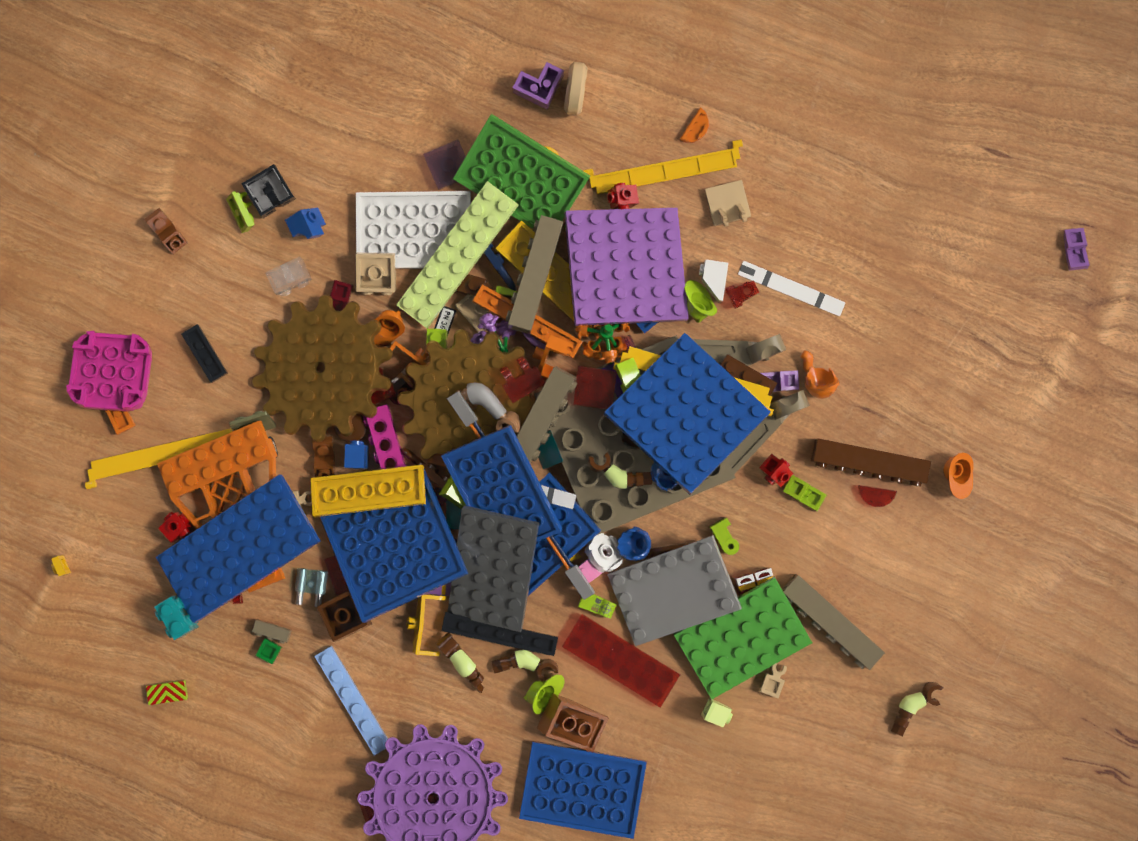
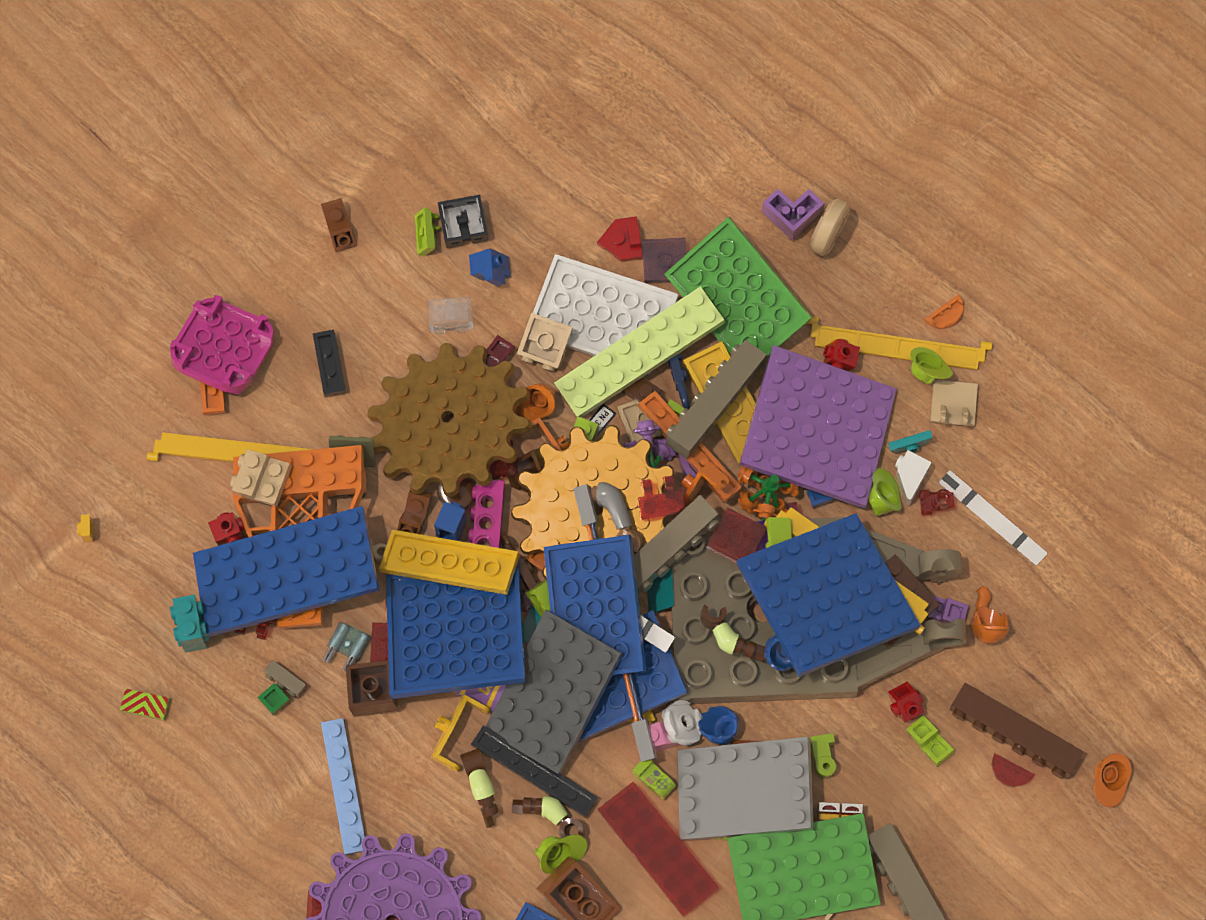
camera: 25 degrees right, 15 degrees down
(186, 477) = (260, 478): none -> tan plate
(407, 158) = (623, 239): none -> red plate
(698, 180) = (928, 365): none -> lime piece
(706, 251) = (910, 443): none -> teal plate

